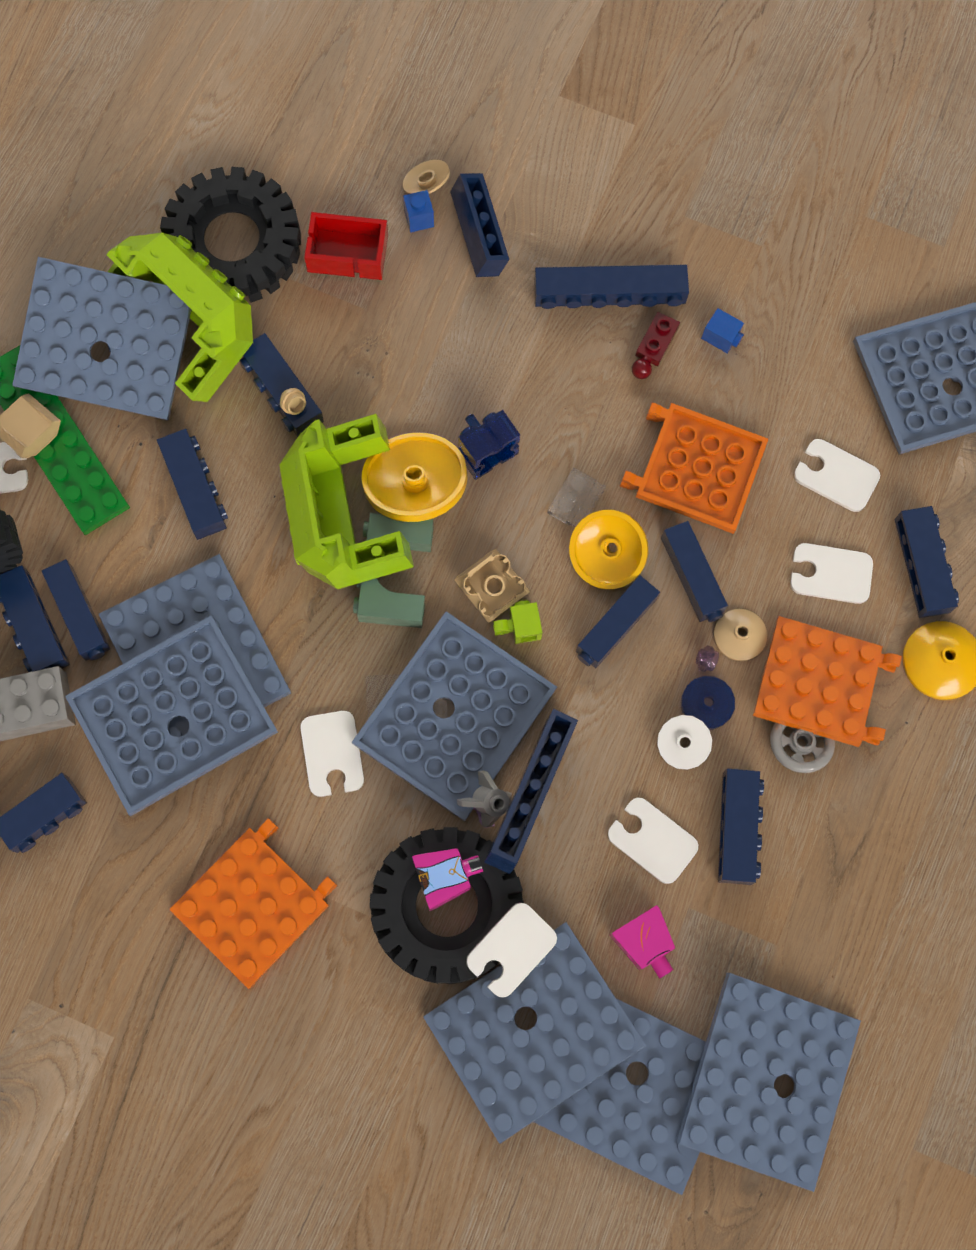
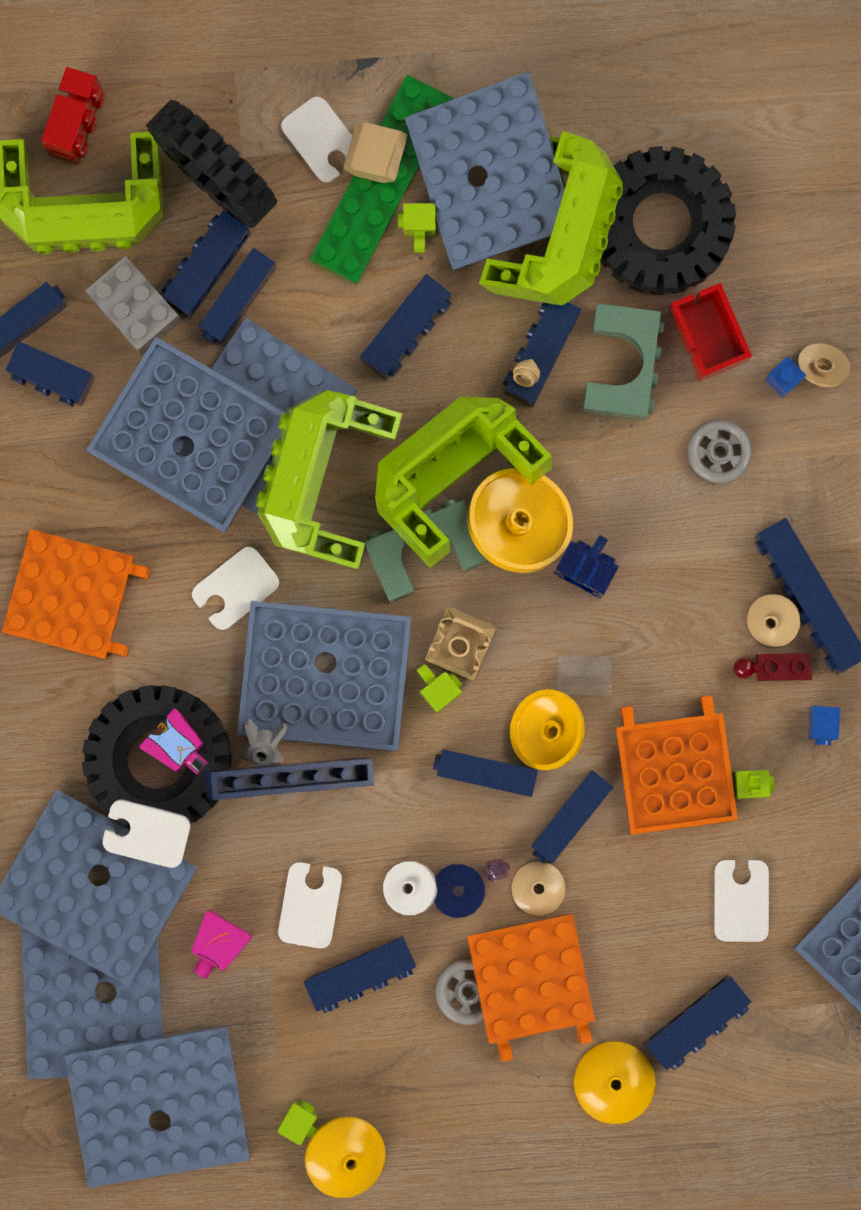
camera: 65 degrees right, 10 degrees up
(109, 425) = (418, 221): none -> lime brick
(259, 634) = (300, 466): none -> lime wedge
(313, 299) = (642, 330): none -> sand green arch
(445, 274) = (714, 473): none -> light grey plate
(479, 225) = (801, 441): dark blue brick -> none
(602, 320) = (782, 611): none -> tan dish
(744, 410) = (753, 784): none -> lime brick
(838, 574) = (644, 949): white piece -> none
(849, 955) = (298, 1122): none -> lime brick
(890, 934) = (337, 1144): none -> yellow dish

